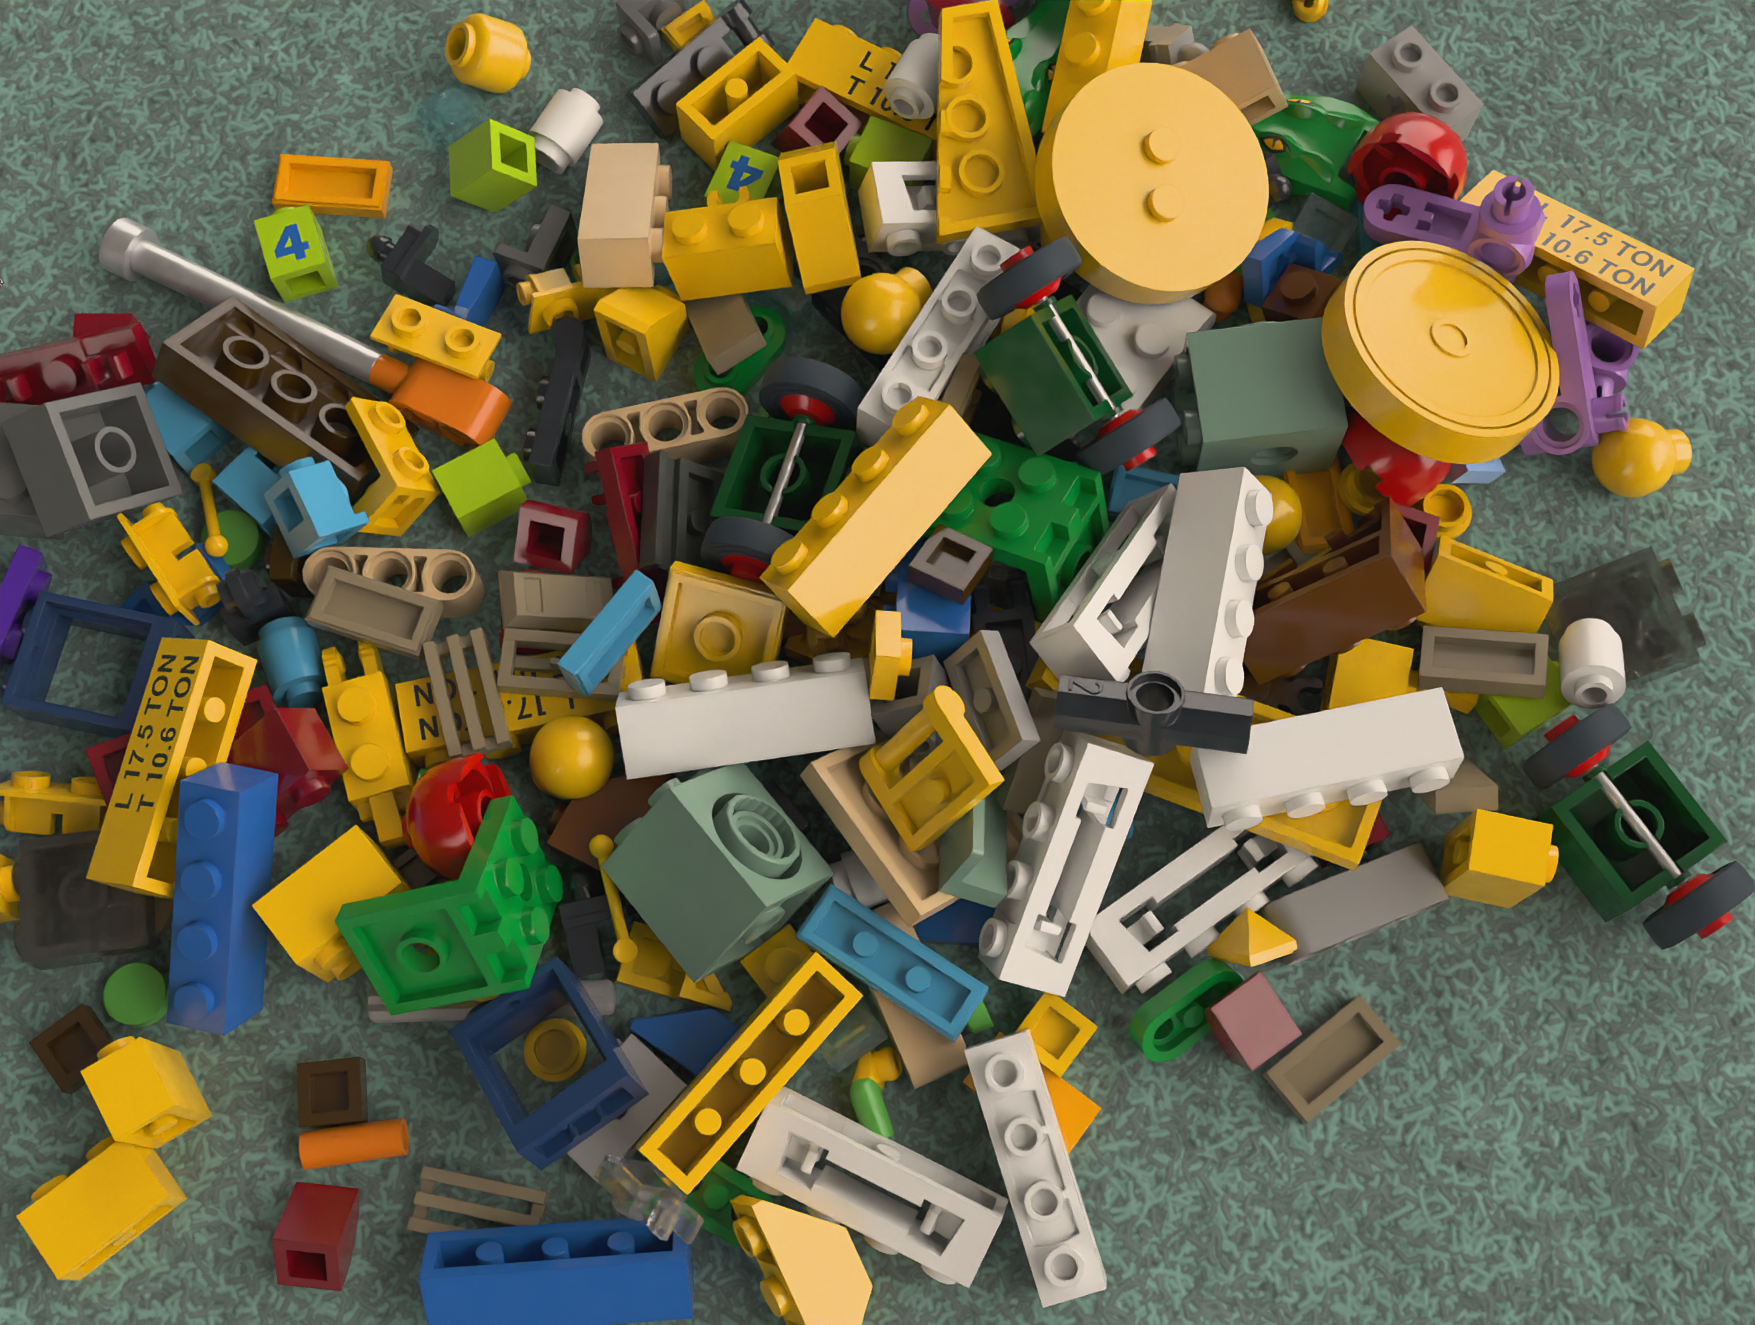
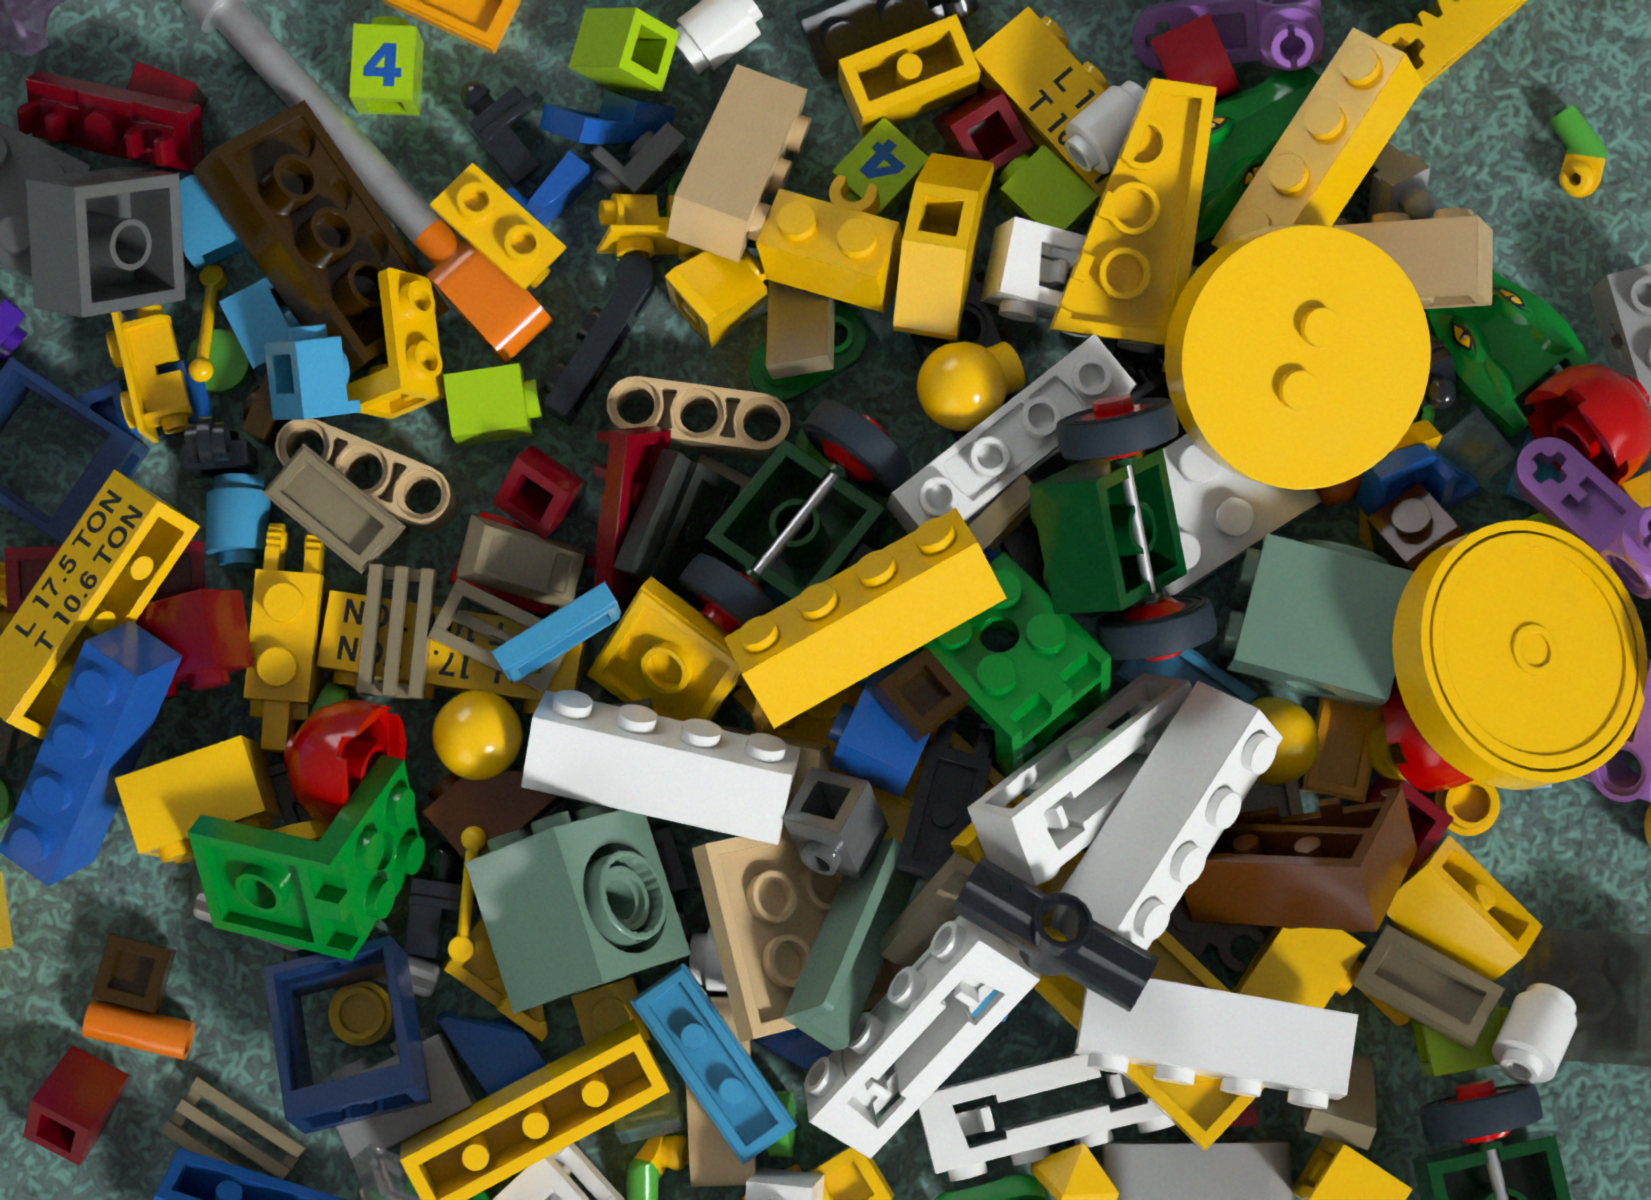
camera: 20 degrees right, 10 degrees up
(505, 225) = (619, 120): none -> blue slope
(888, 655) = (821, 768): yellow plate -> none
(943, 783) = (822, 921): yellow plate -> none
(992, 697) = (906, 850): light grey plate -> none

